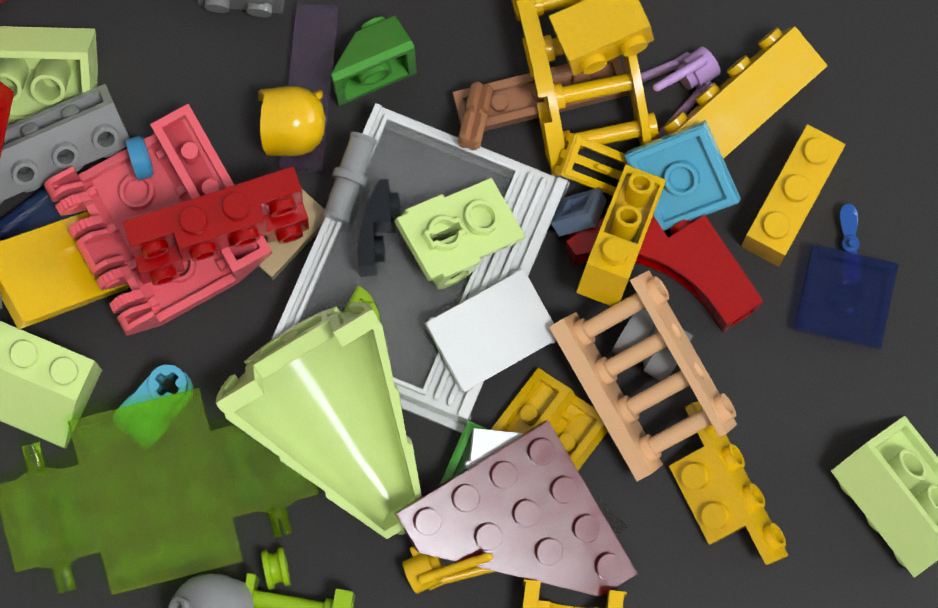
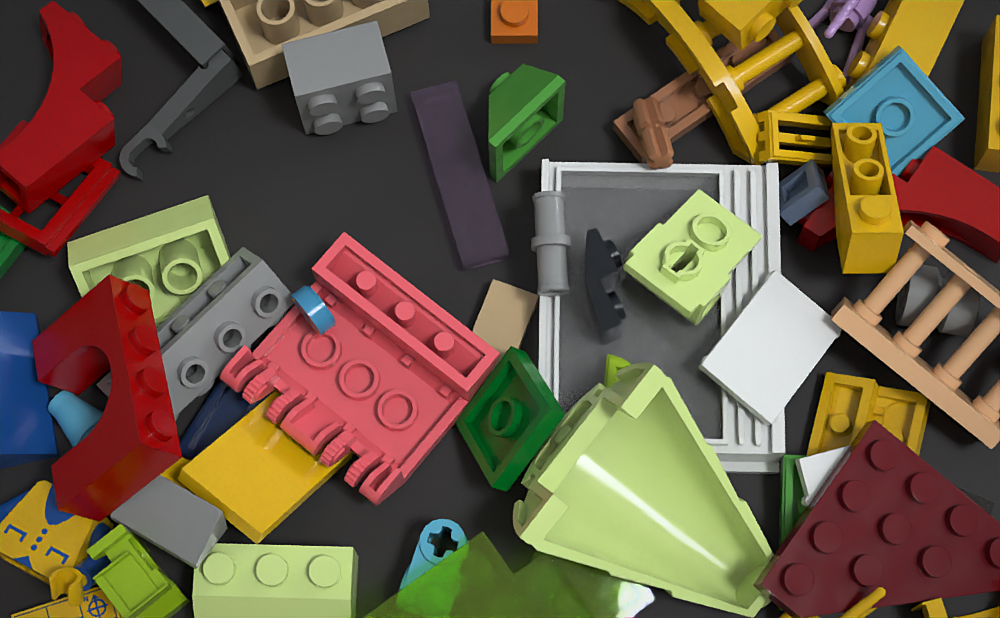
camera: 20 degrees left, 5 degrees down
(215, 221) = (418, 351): red bracket -> none
(258, 306) = (509, 418): none -> green plate
(291, 120) = (462, 210): yellow helmet -> none

